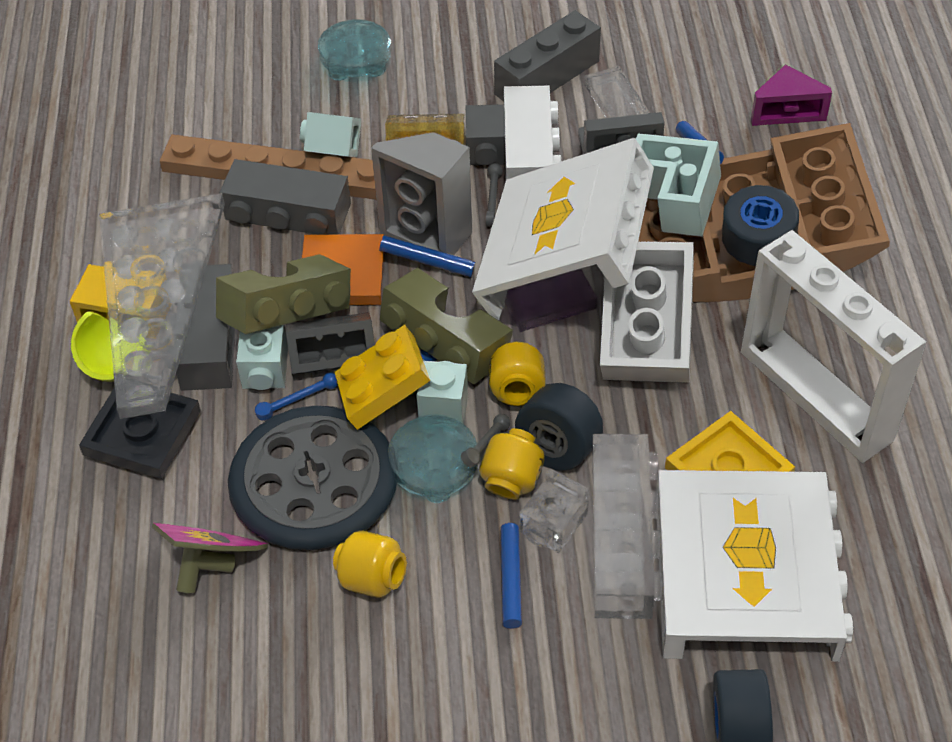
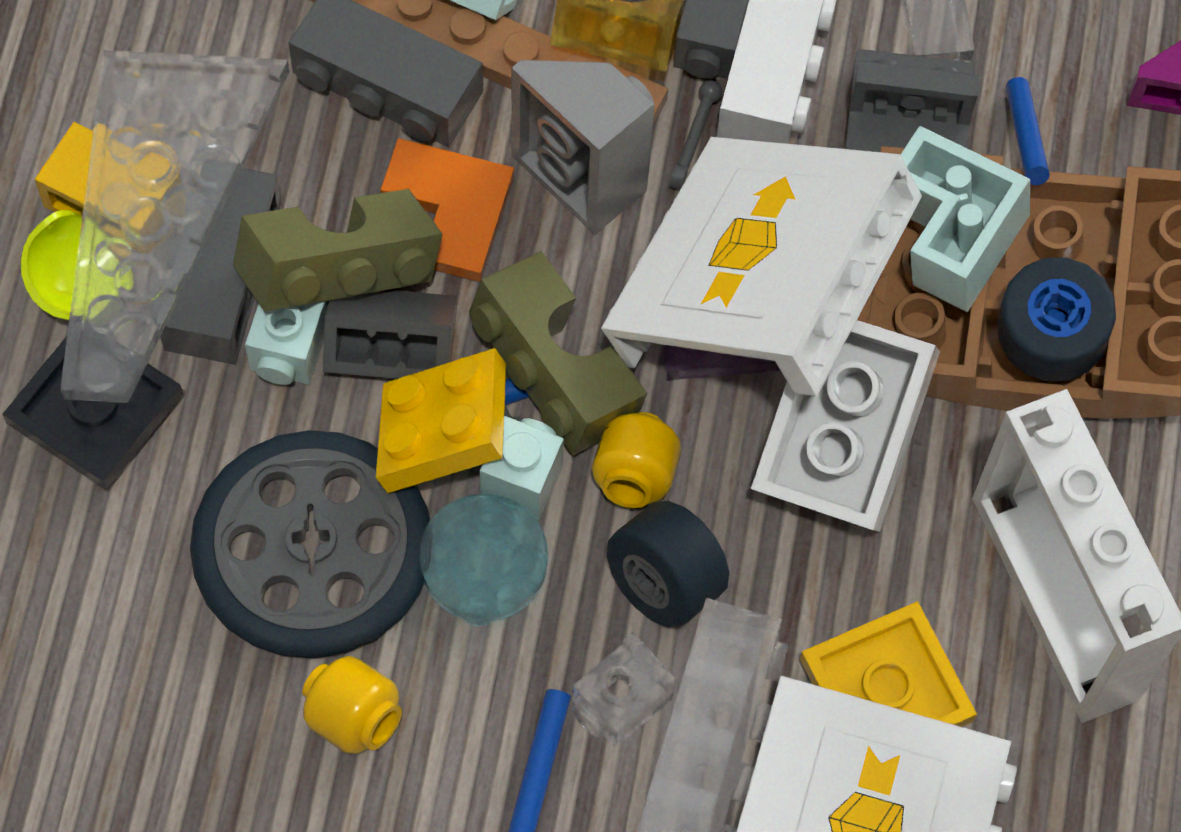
camera: 10 degrees right, 15 degrees up
(194, 557) = (137, 618): olive shield -> none
(265, 410) = (272, 416): blue hinge -> none
(427, 256) = (566, 222): blue piece -> none
(471, 456) = (532, 581): dark grey hinge -> none
(511, 464) = (586, 603): yellow head -> none

